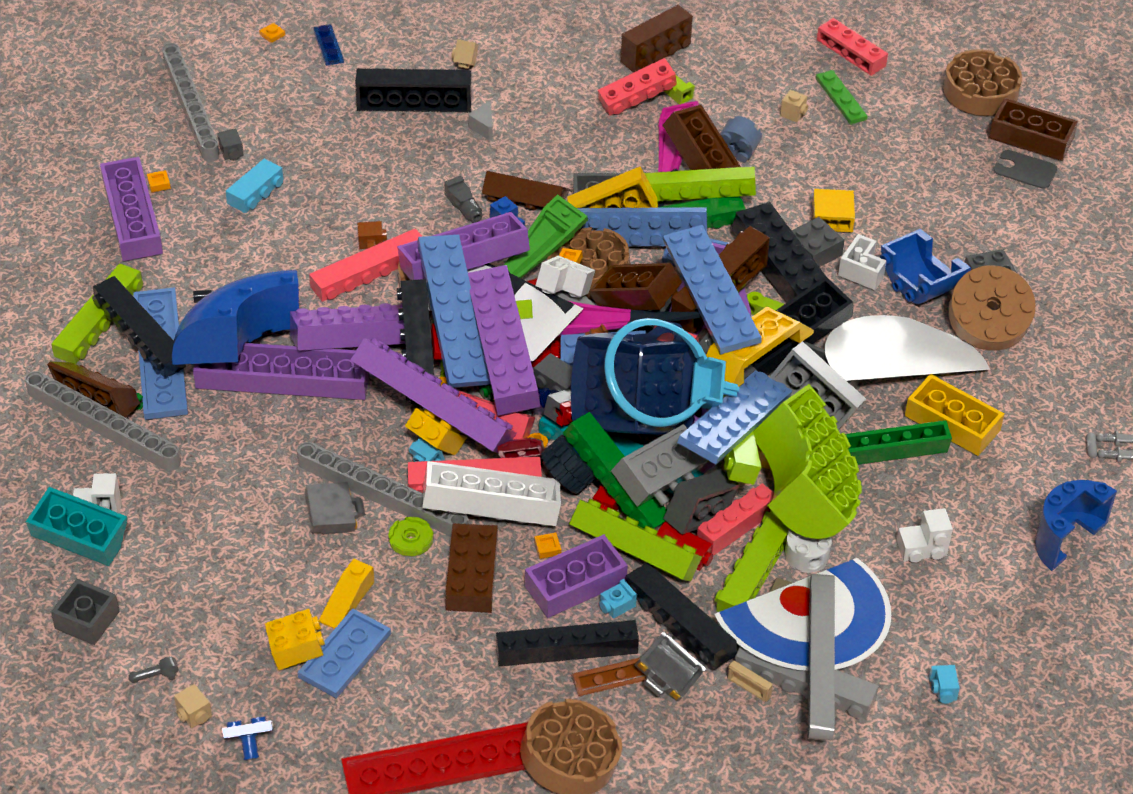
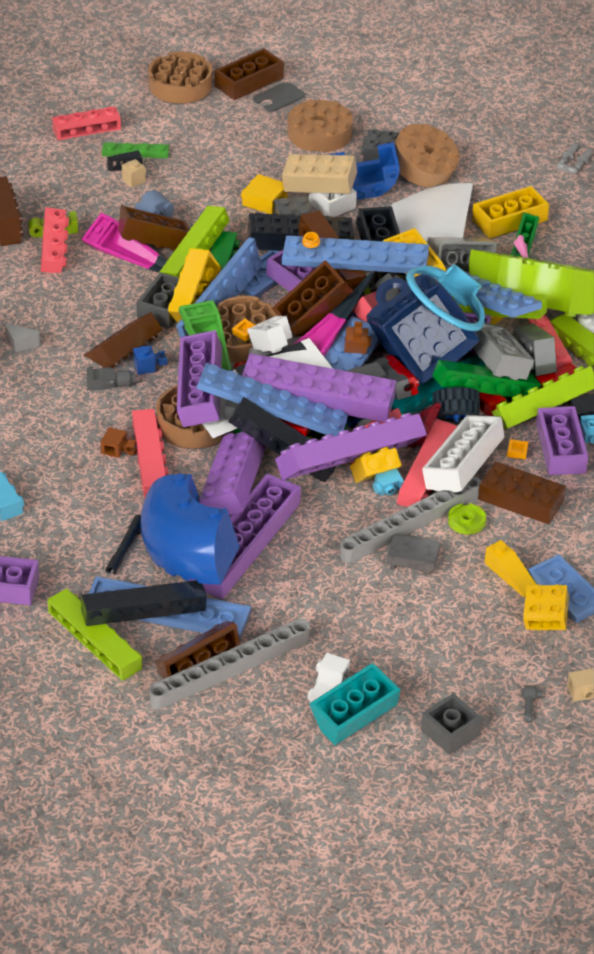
camera: 65 degrees left, 5 degrees down
(695, 241) = (311, 240): none -> light orange plate
(815, 97) = (129, 156): none -> black slope
(870, 229) = (319, 173): none -> tan brick
(876, 435) = (521, 246): none -> bright pink bar
(989, 213) = (320, 125): none -> medium nougat brick

